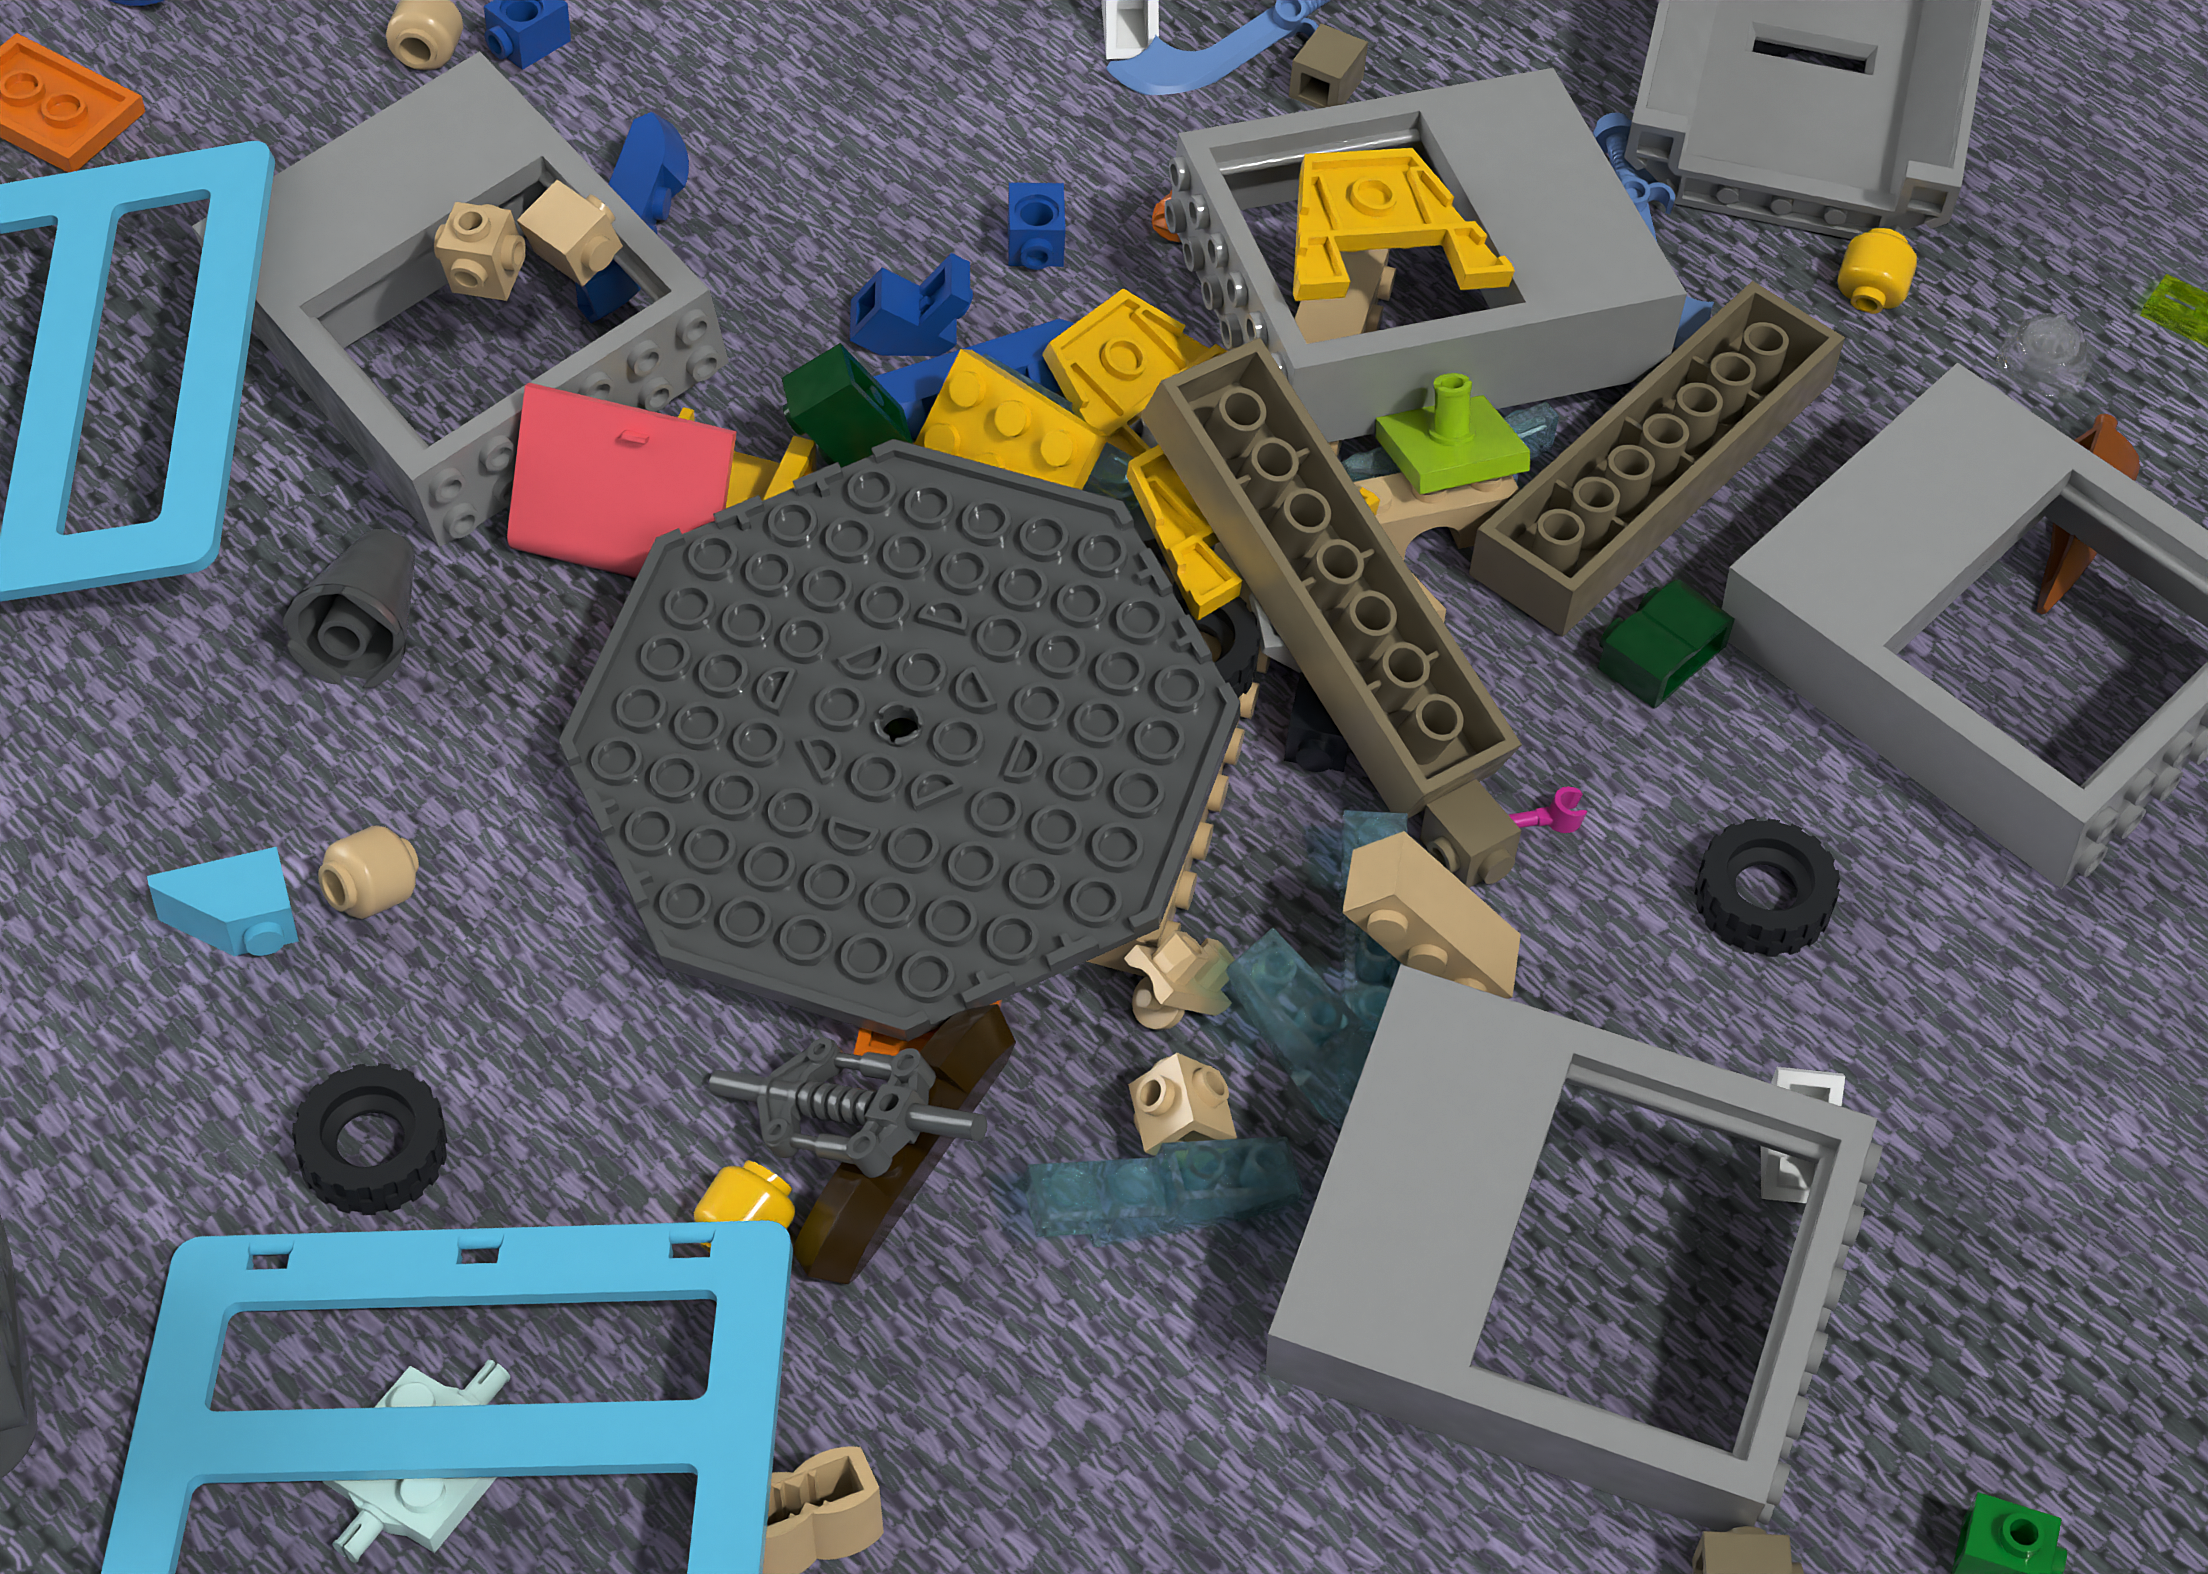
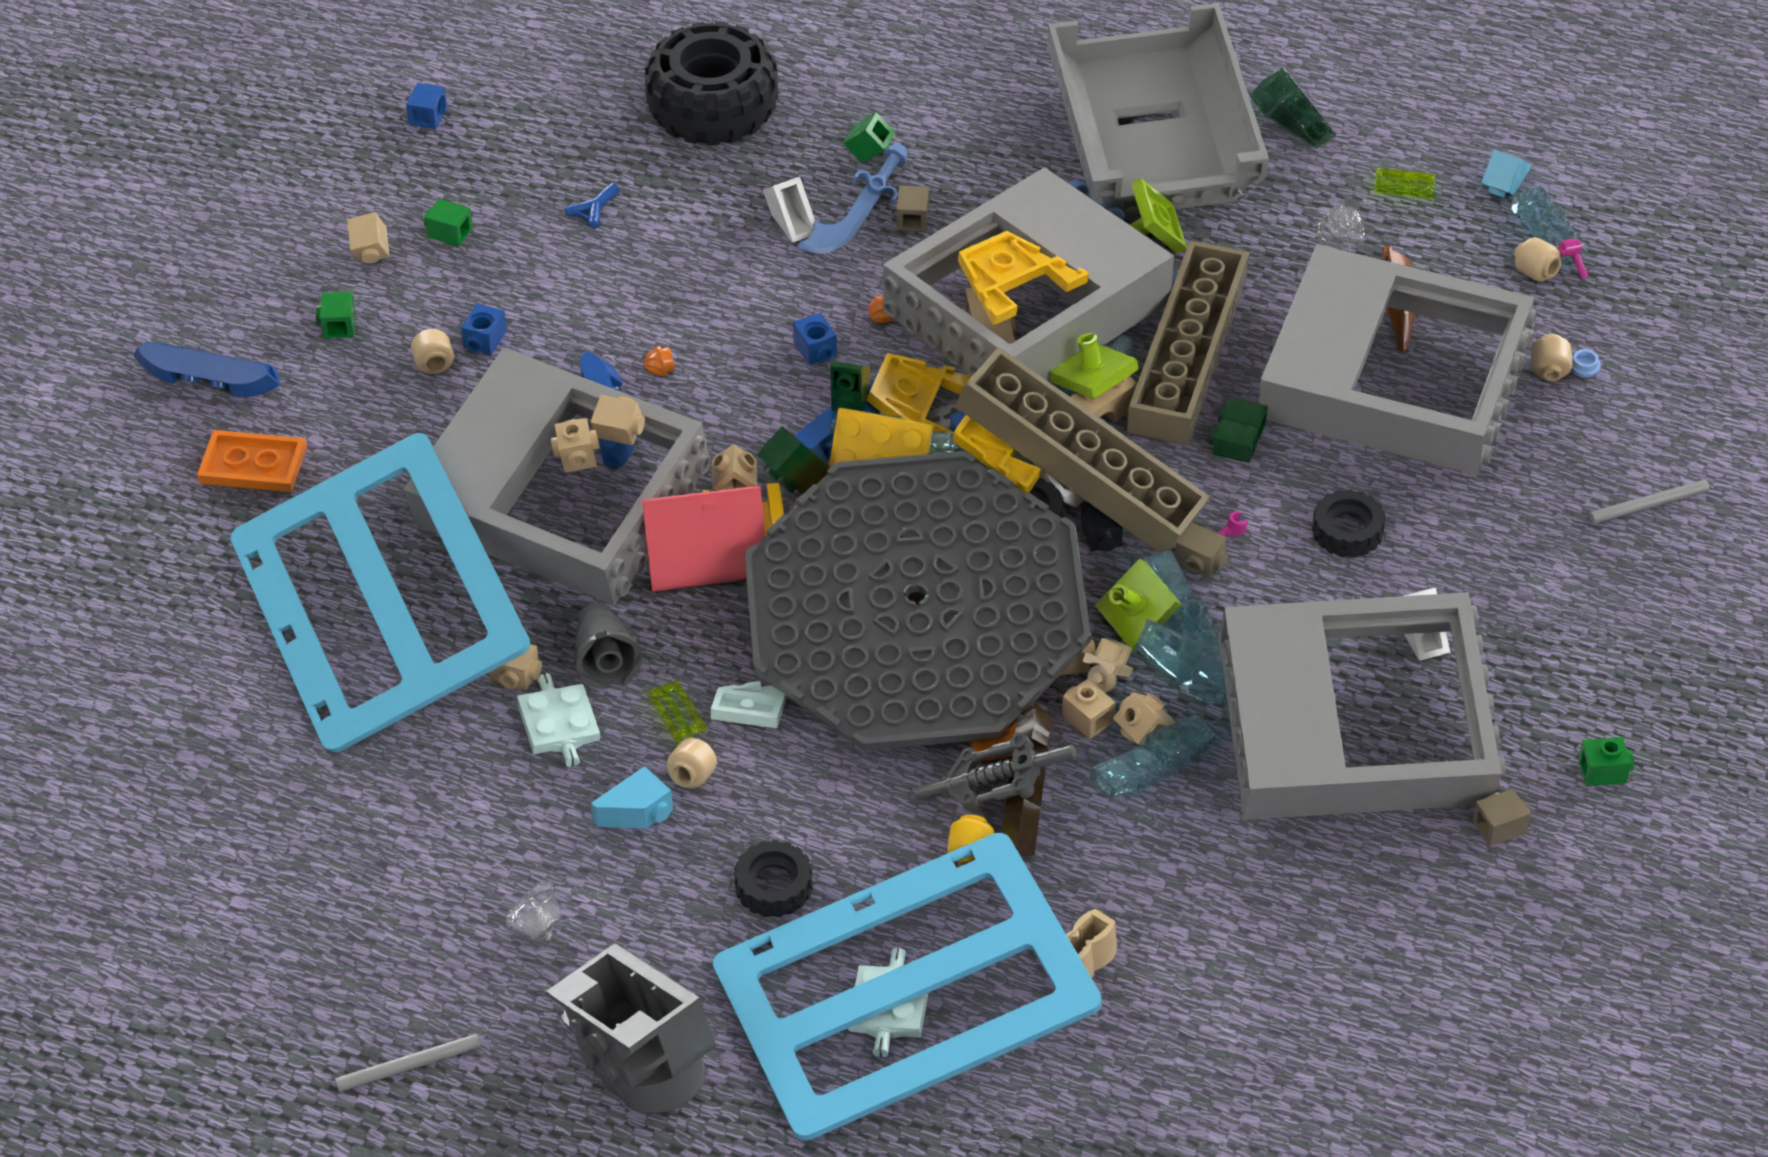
camera: 20 degrees left, 5 degrees down
(208, 597) = (519, 671): none -> tan brick
(215, 706) = (558, 719): none -> light aqua plate
(414, 809) = (686, 730): none -> clear neon green tile
(530, 806) = (749, 704): none -> light aqua wing
(754, 398) = (734, 469): none -> tan brick
(765, 172) = (659, 361): none -> orange plate
(910, 319) = (784, 406): blue brick -> none
(1017, 317) = (849, 386): none -> dark green slope
(1099, 1047) = (1088, 708): none -> tan brick
(1295, 884) = (1135, 599): none -> lime tile
(1429, 916) = (1208, 586): tan brick -> none
(1722, 222) = (1157, 216): none -> lime tile
(1877, 269) = (1239, 214): yellow head -> none
(2066, 124) = (1288, 106): none -> clear green slope

